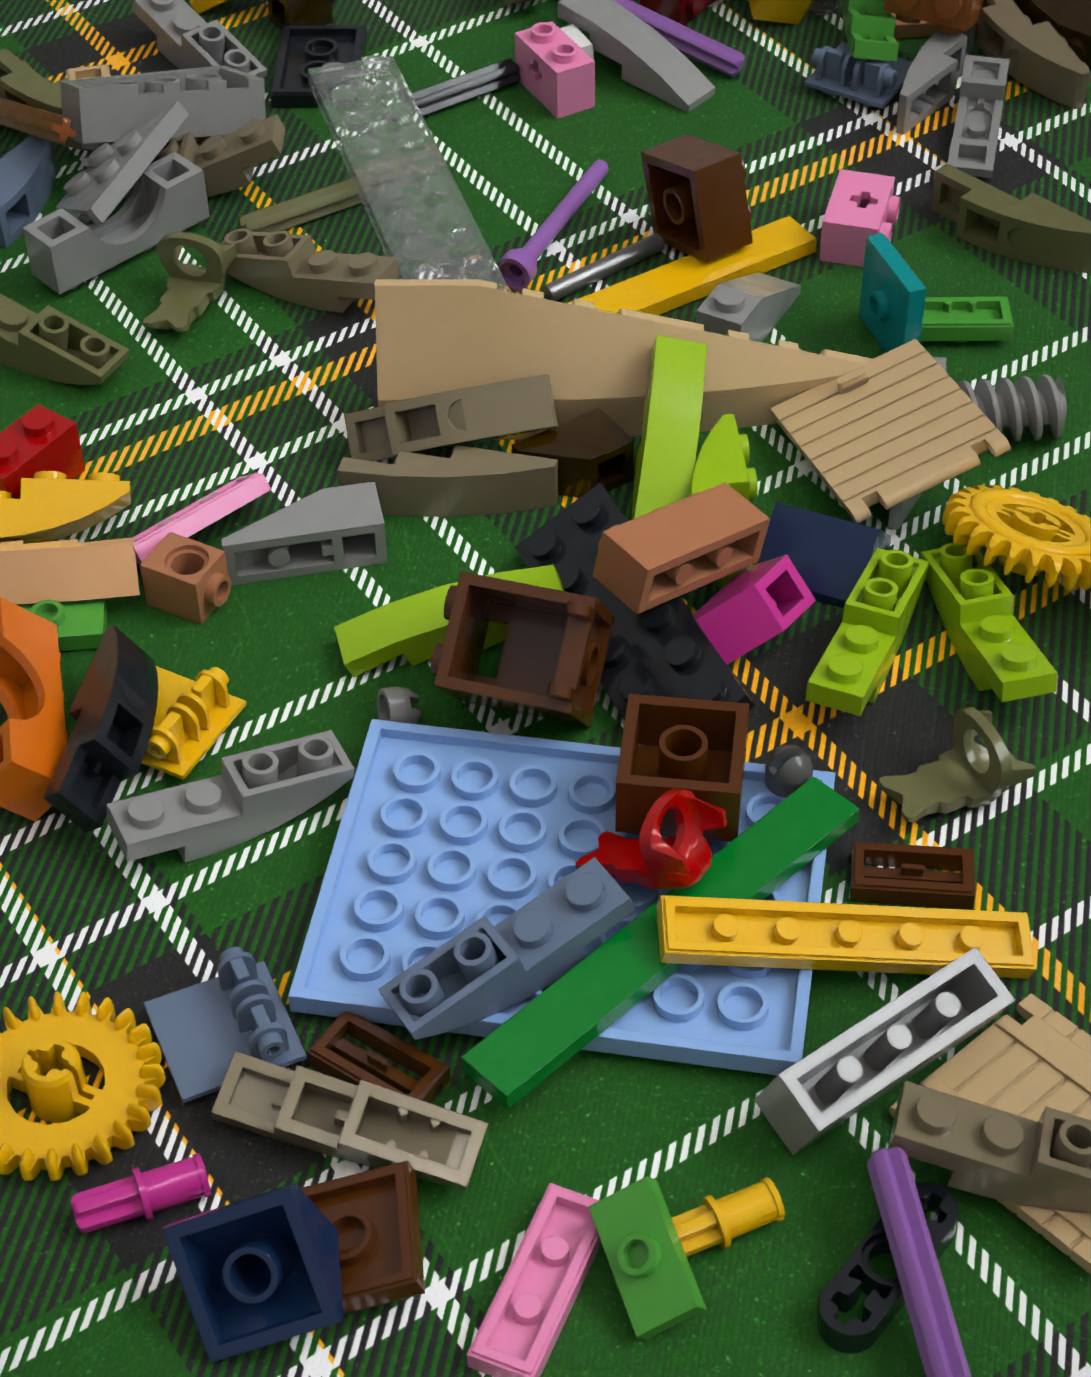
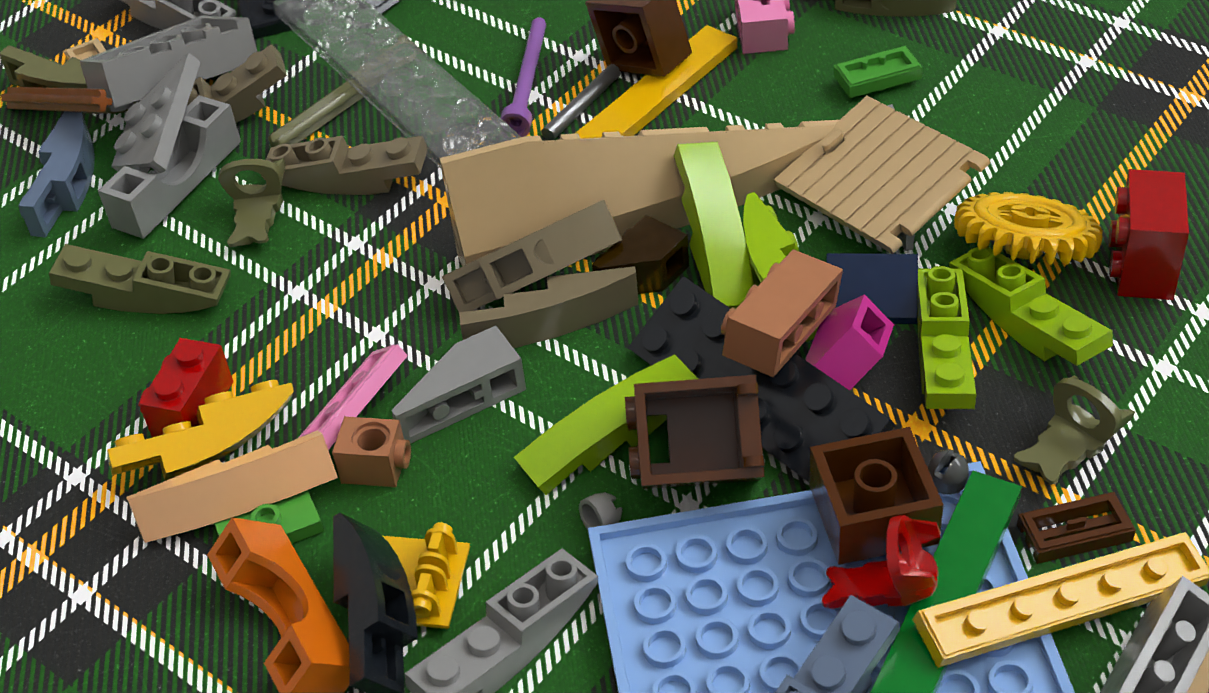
camera: 15 degrees left, 0 degrees up
(747, 305) = (713, 102): light grey slope -> none
(890, 295) = (826, 69): teal plate -> none
(1021, 404) = (968, 123): light grey piece -> none

